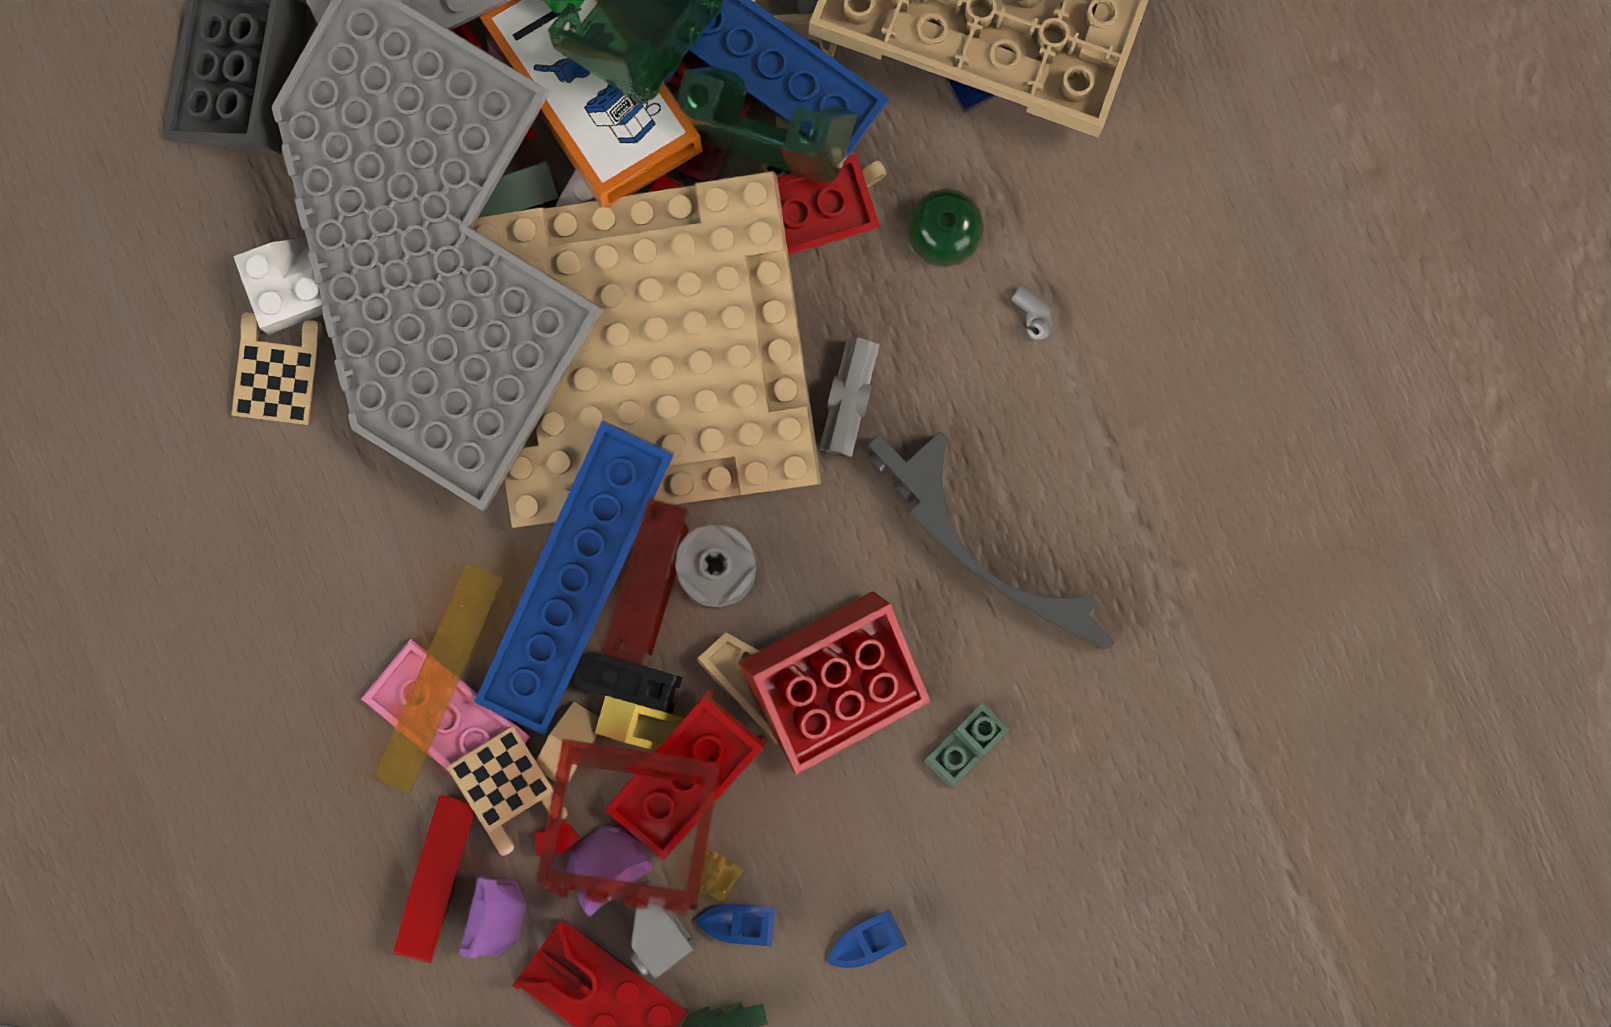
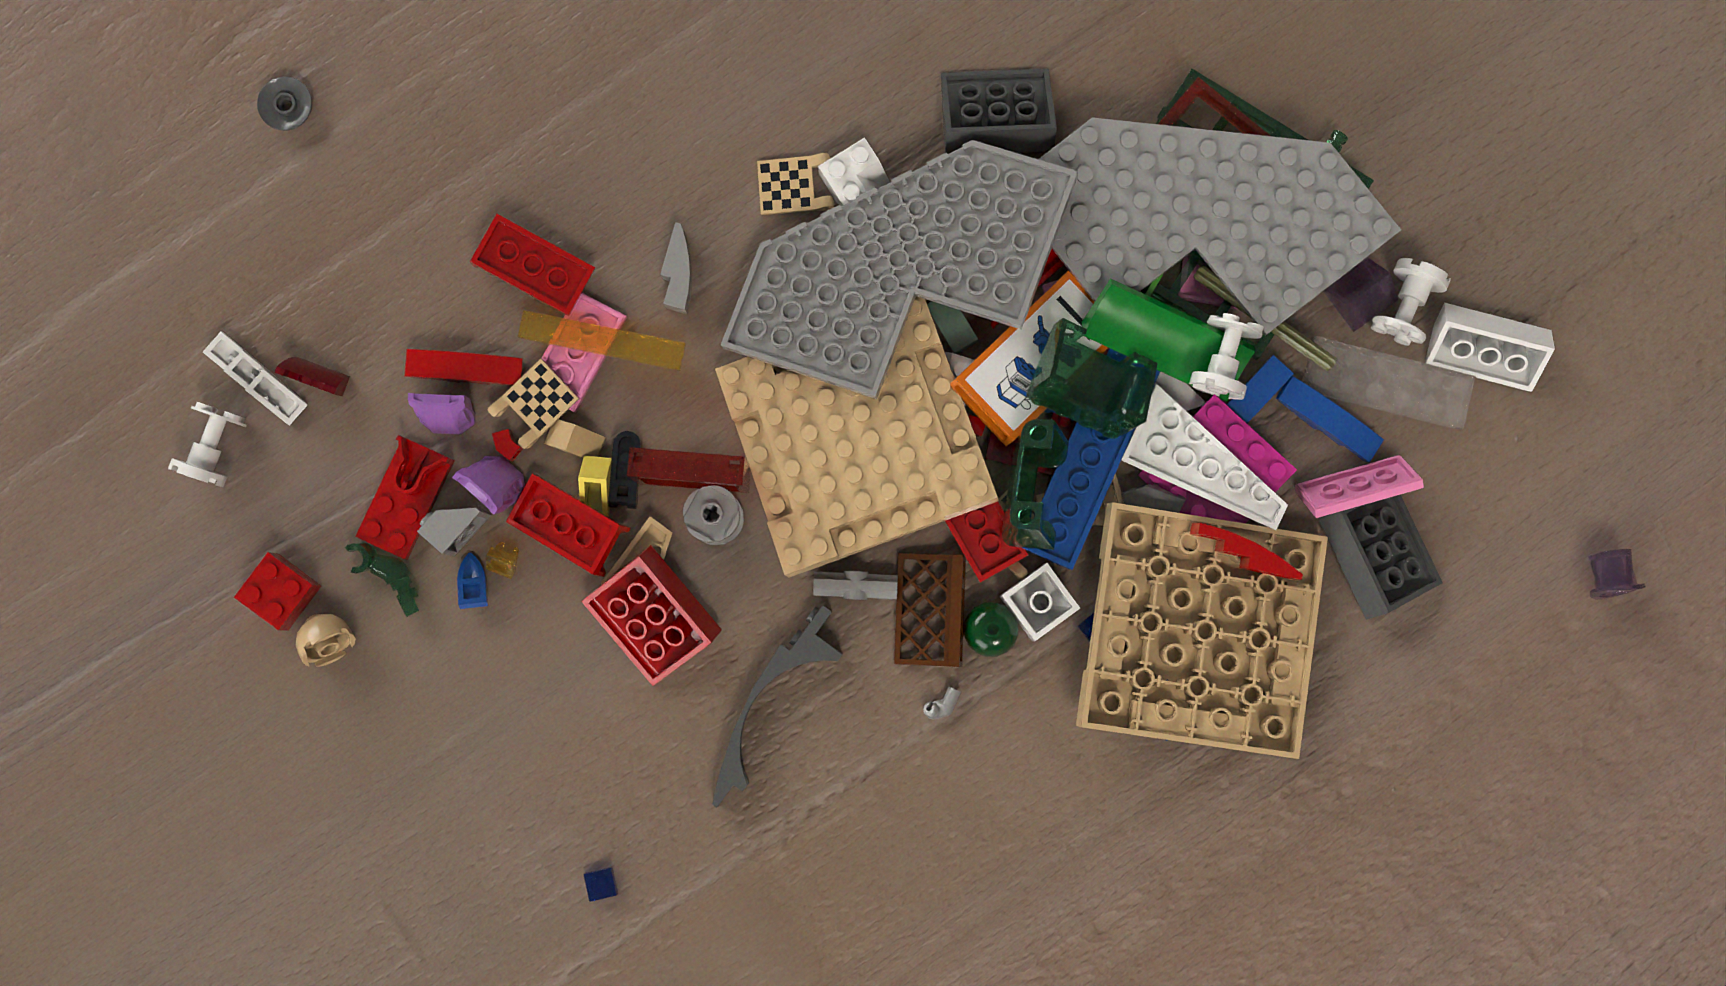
camera: 80 degrees right, 0 degrees up
(312, 752) = (532, 264): none -> red plate
(364, 553) = (678, 271): none -> light grey slope
(573, 577) = (688, 418): blue plate -> none
(639, 763) = (469, 505): clear red window -> none
(867, 942) = (475, 675): blue plate -> none
(911, 271) = (954, 610): none -> reddish brown fence
(922, 152) = (1039, 602): none -> white slope
(966, 745) = (627, 717): sand green slope -> none
(1185, 824) = (600, 884): none -> clear blue plate

